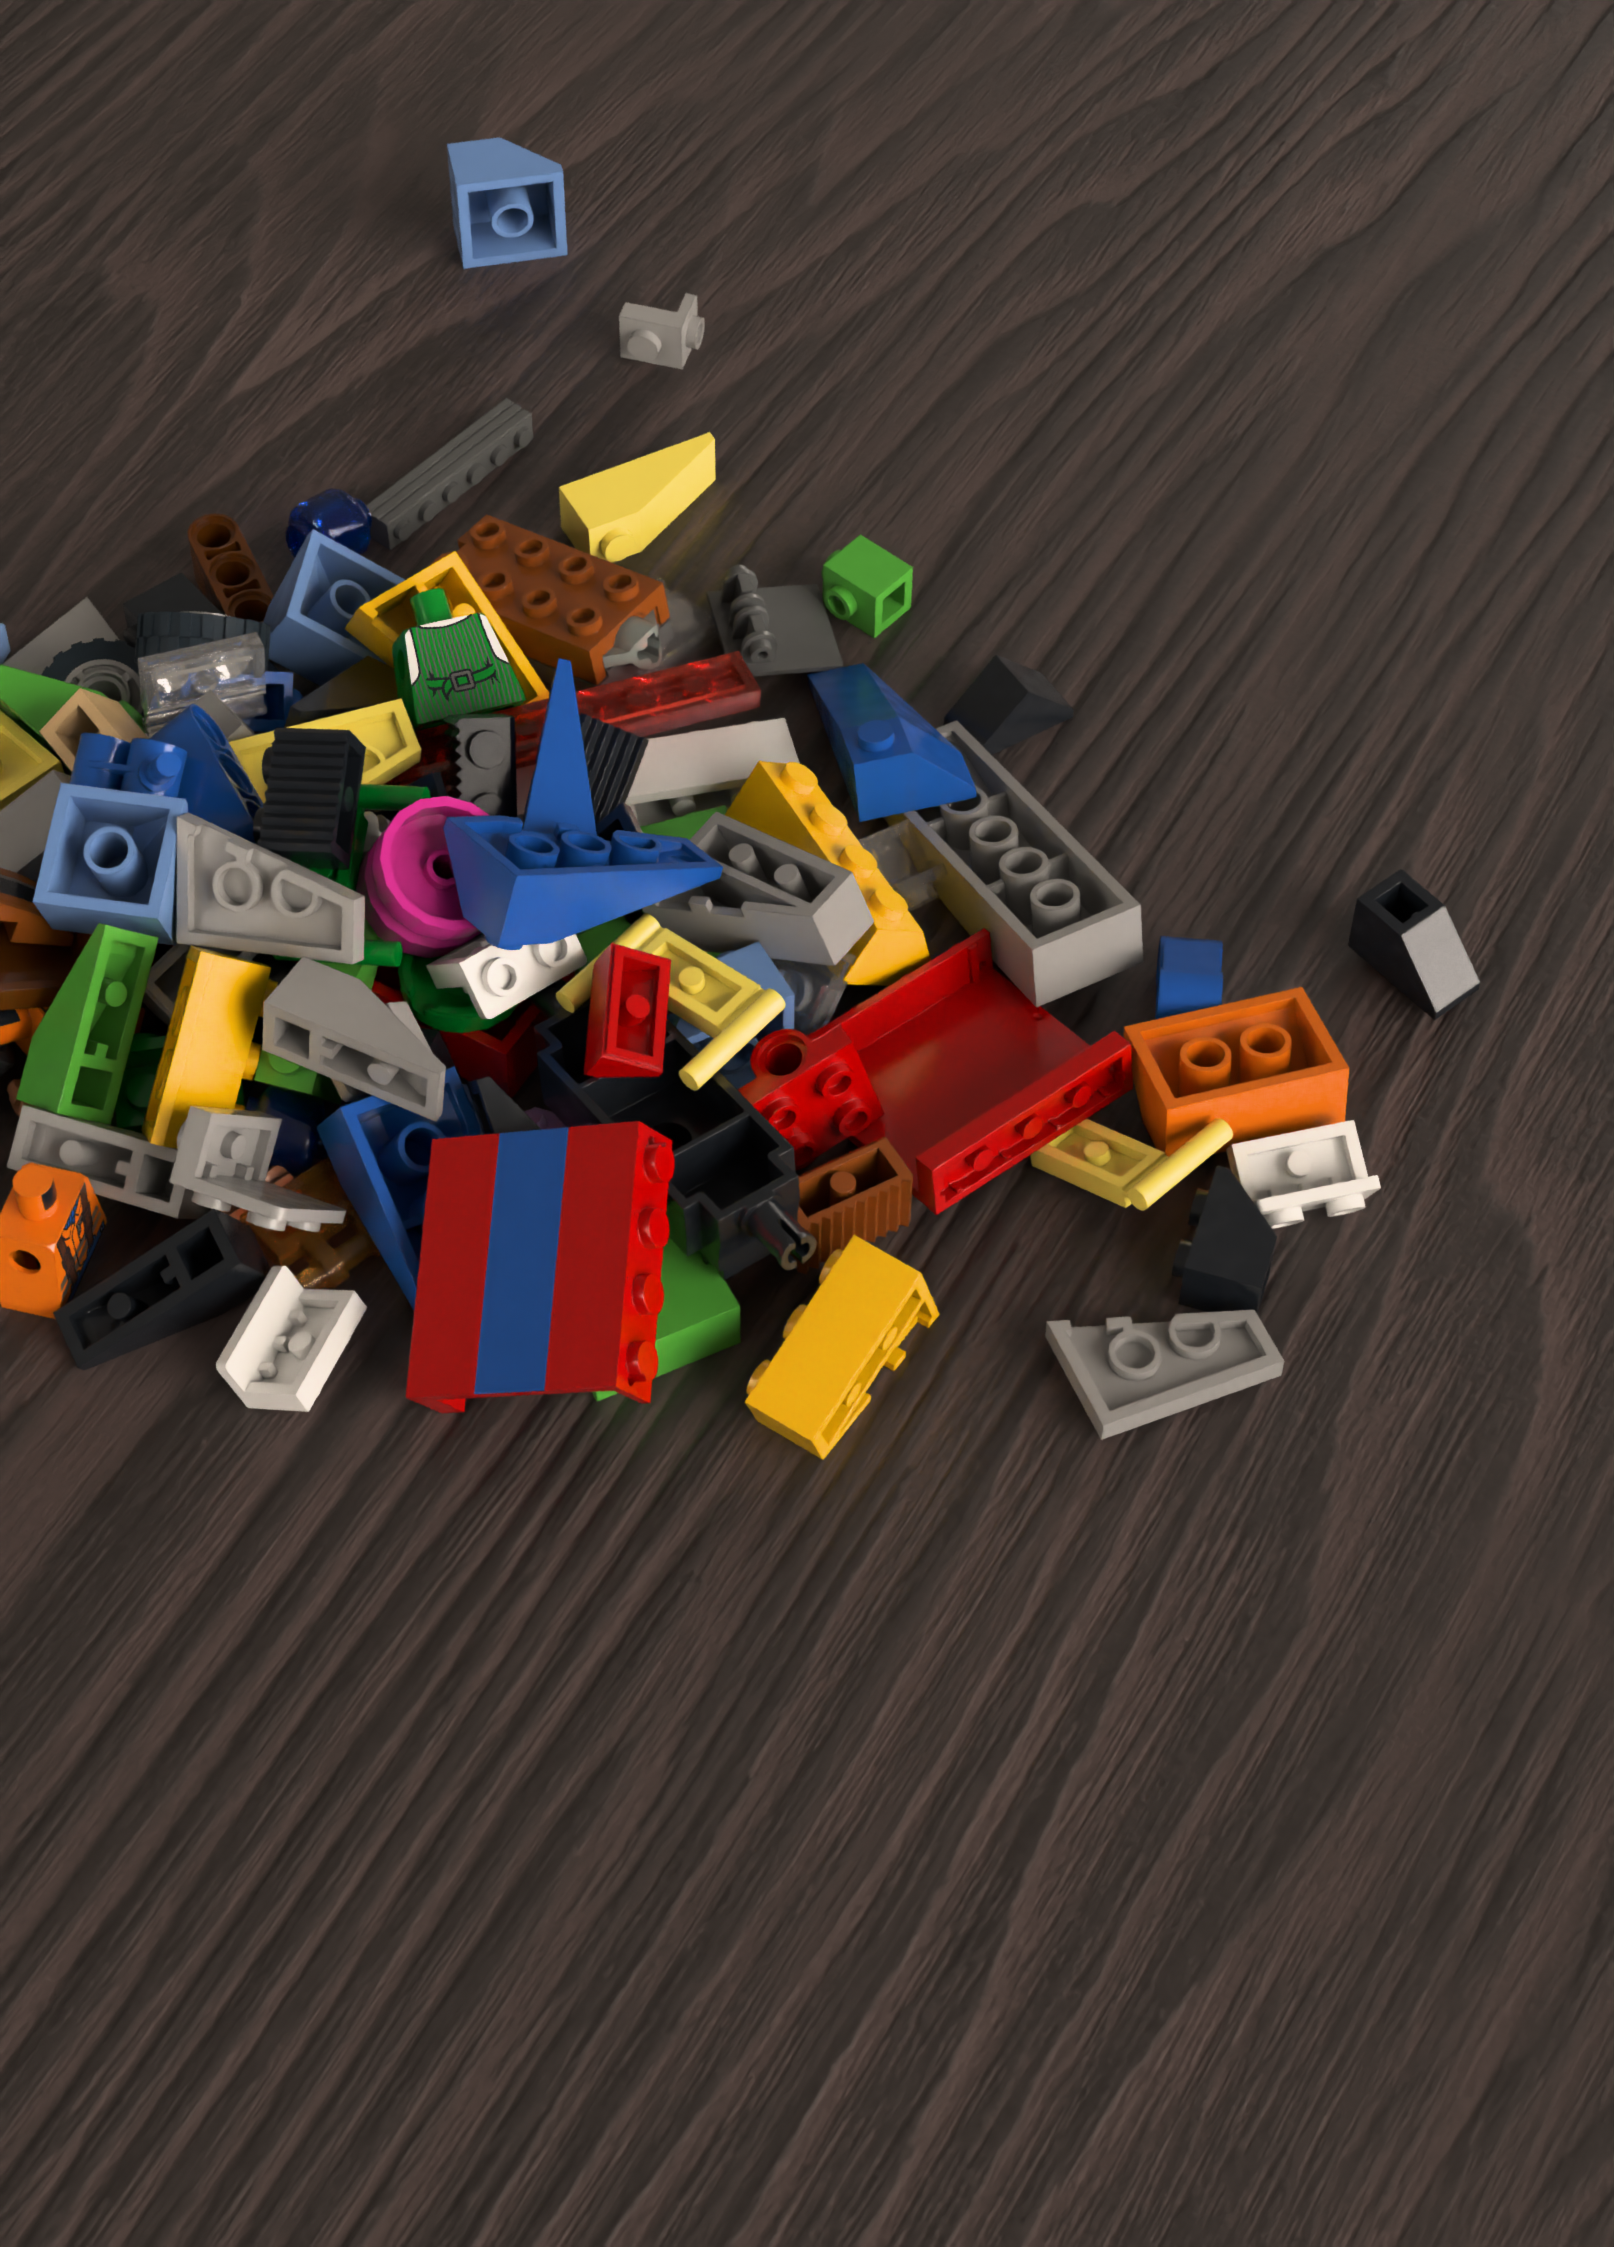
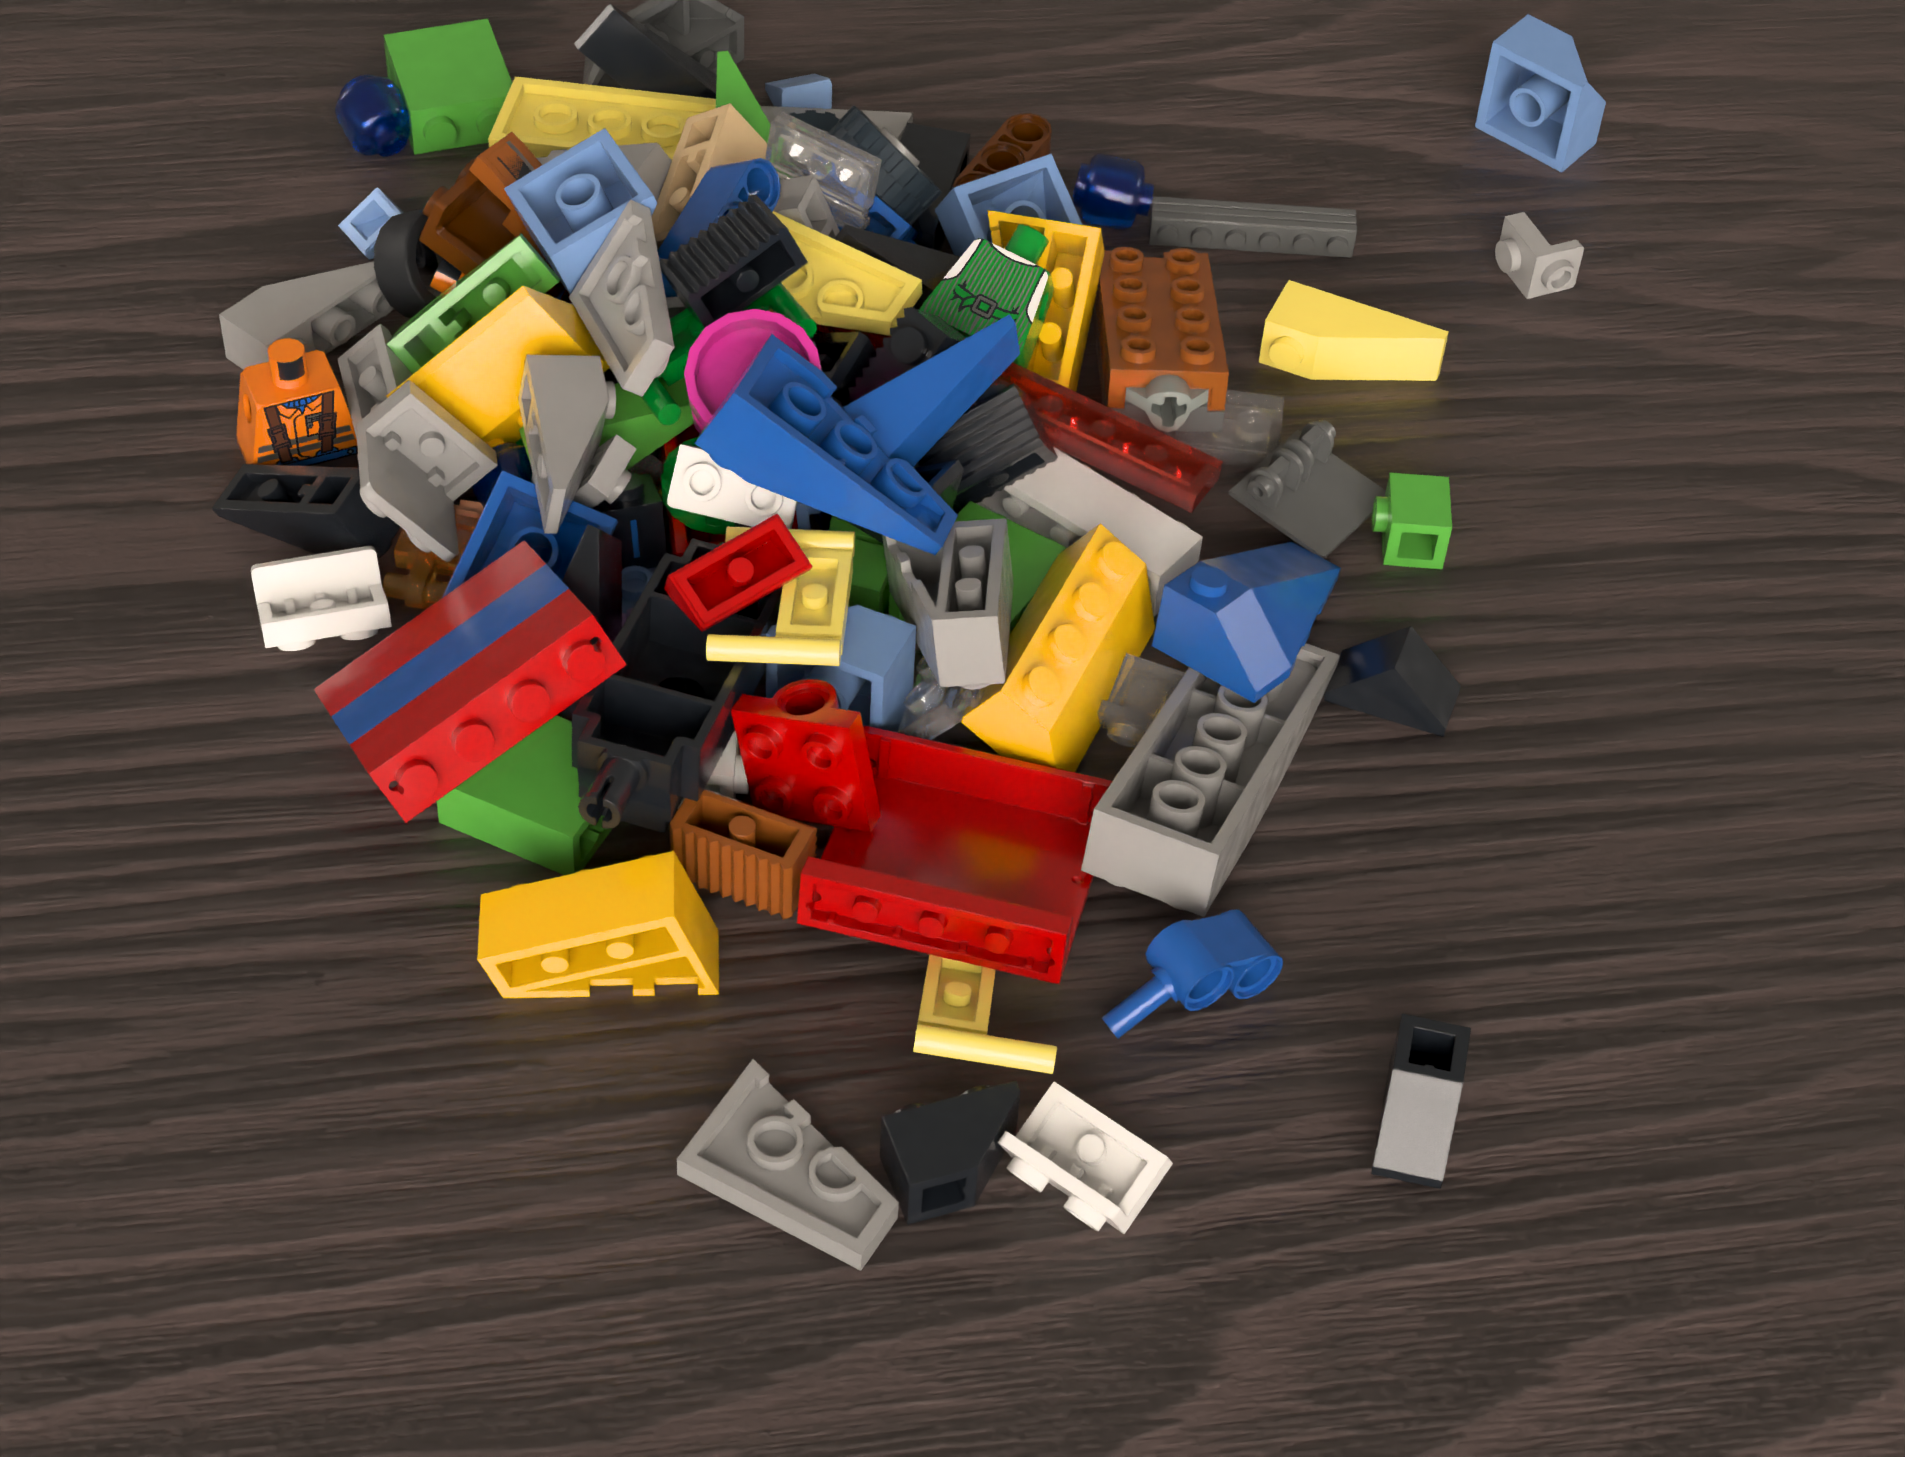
camera: 50 degrees right, 5 degrees down
(133, 767) = (672, 169): blue beam -> none
(1249, 1061) = (1140, 1043): orange slope -> none

